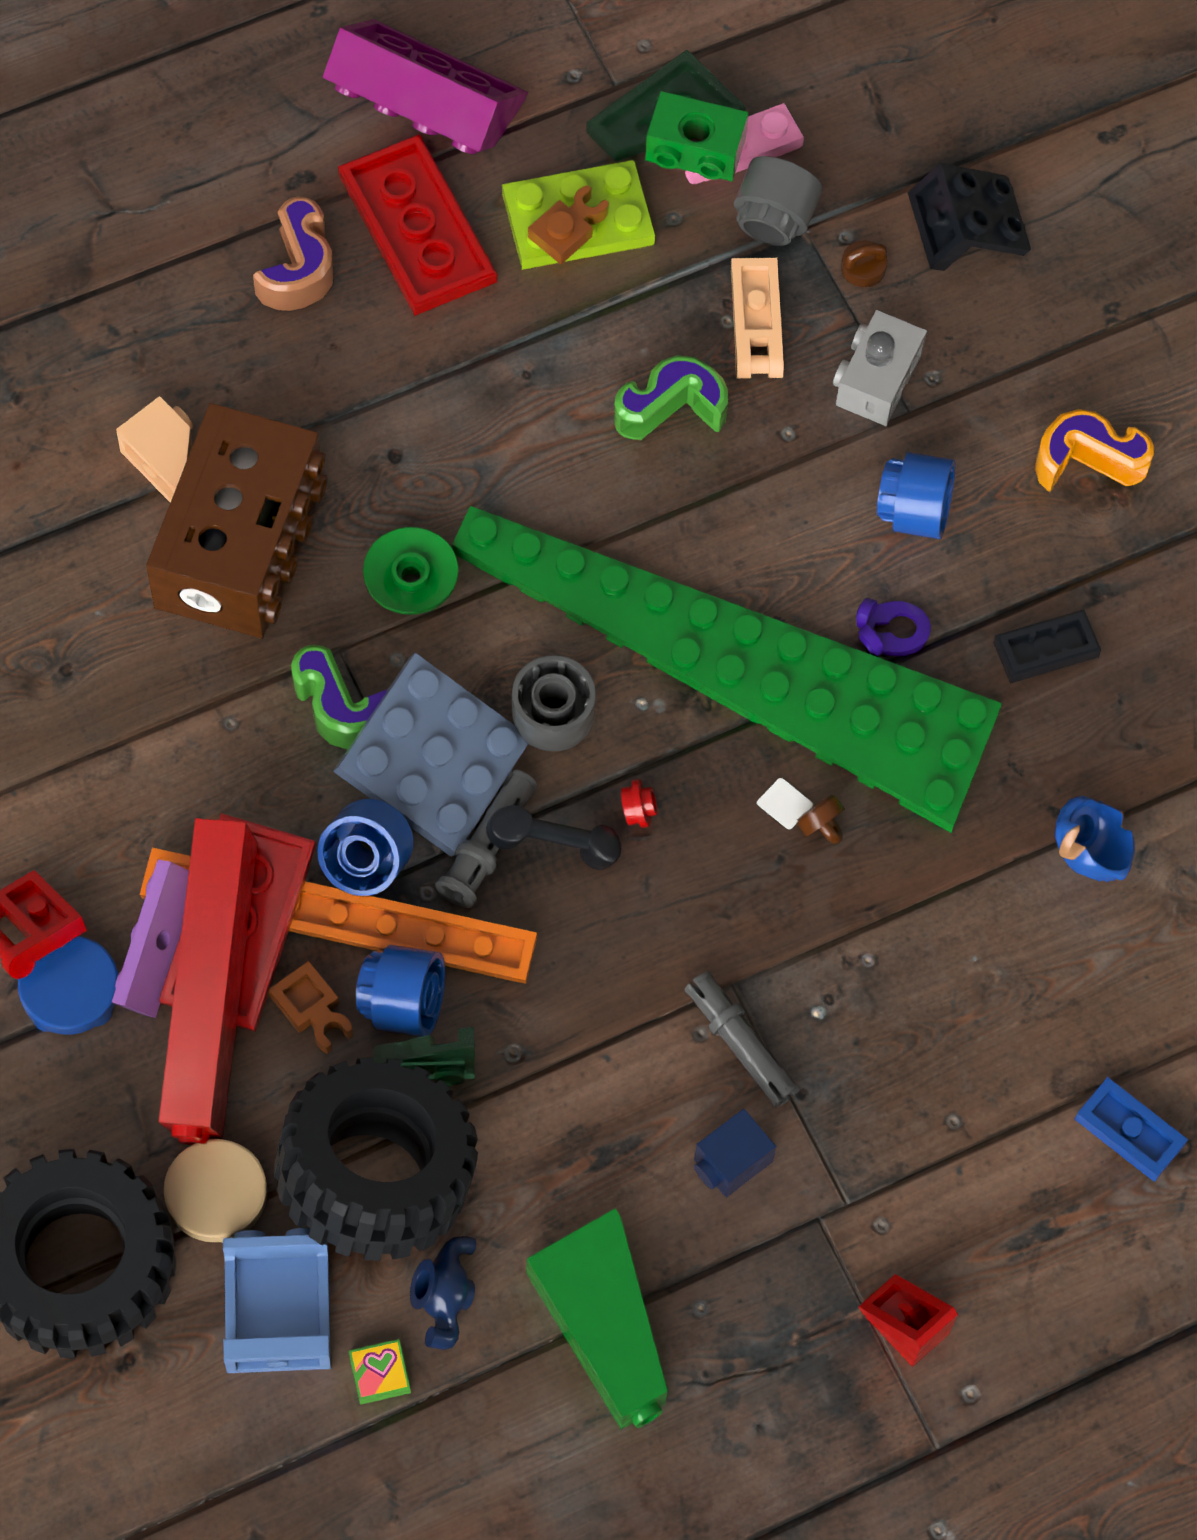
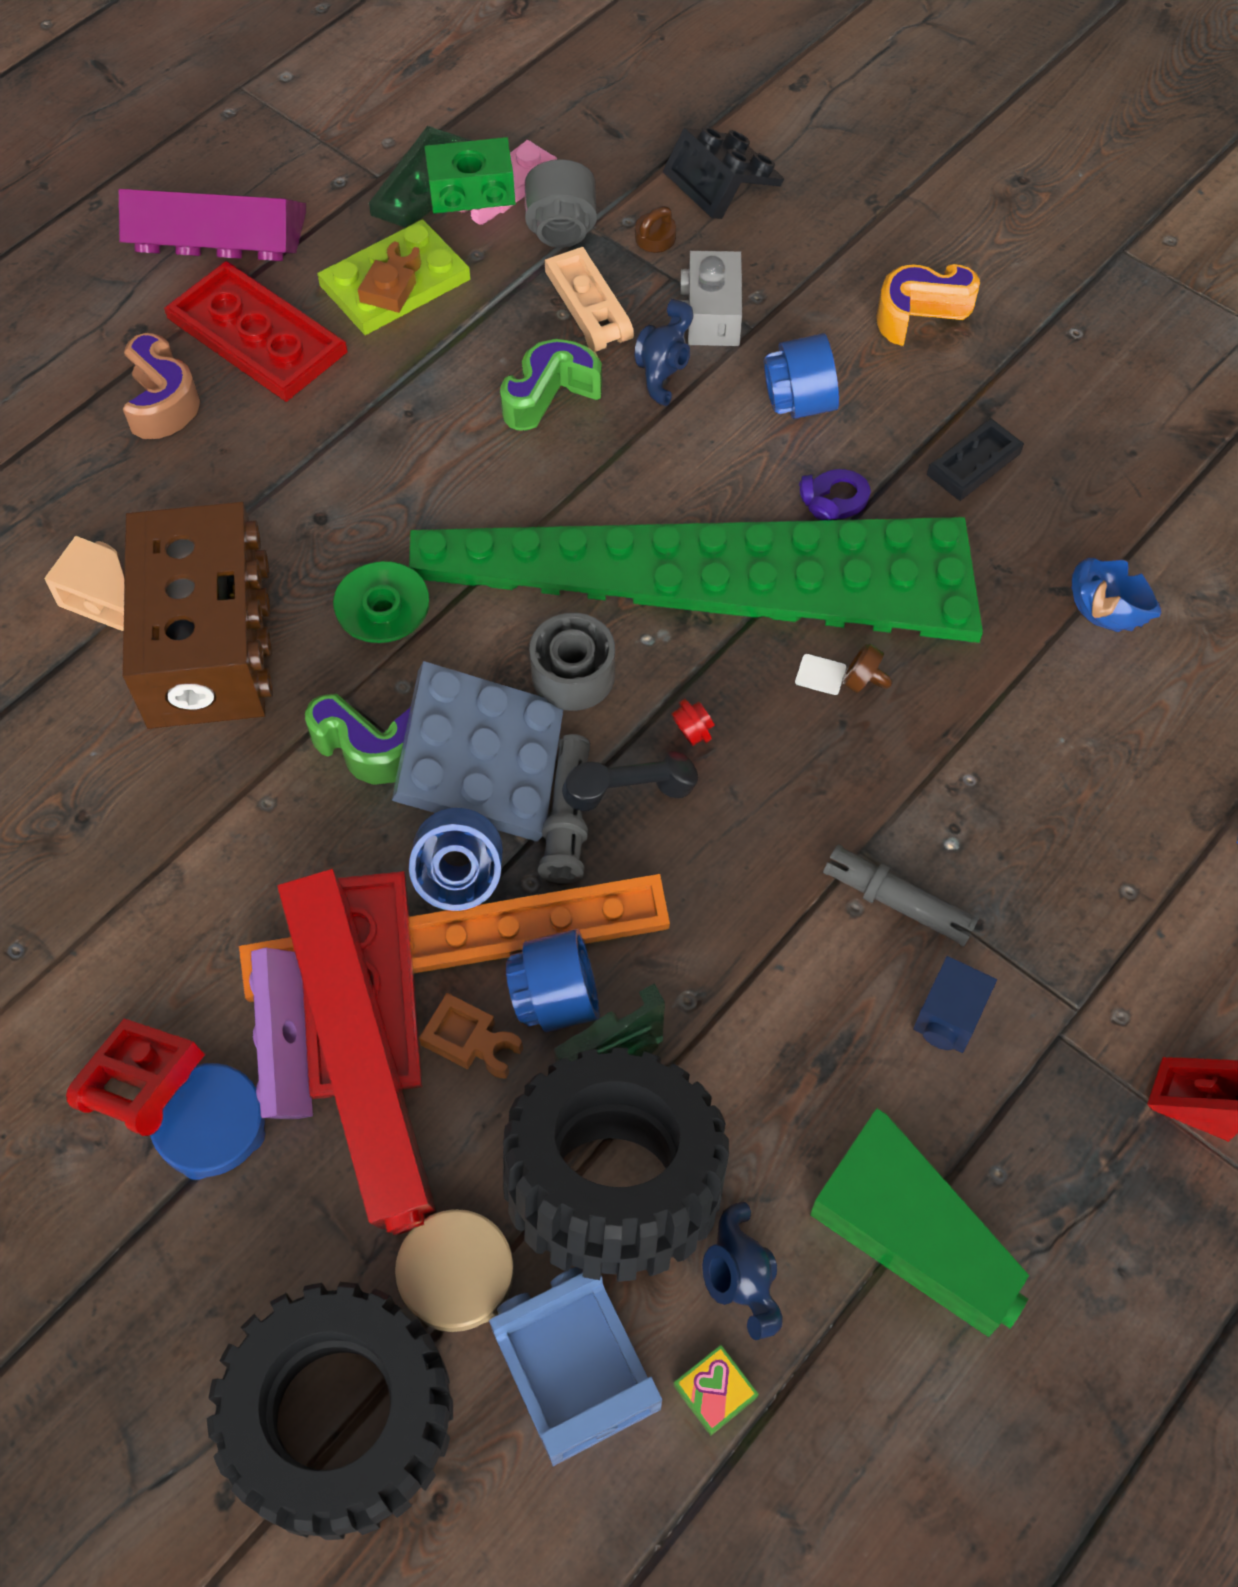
camera: 20 degrees left, 5 degrees down
(800, 409) = (664, 350): none -> dark blue piece

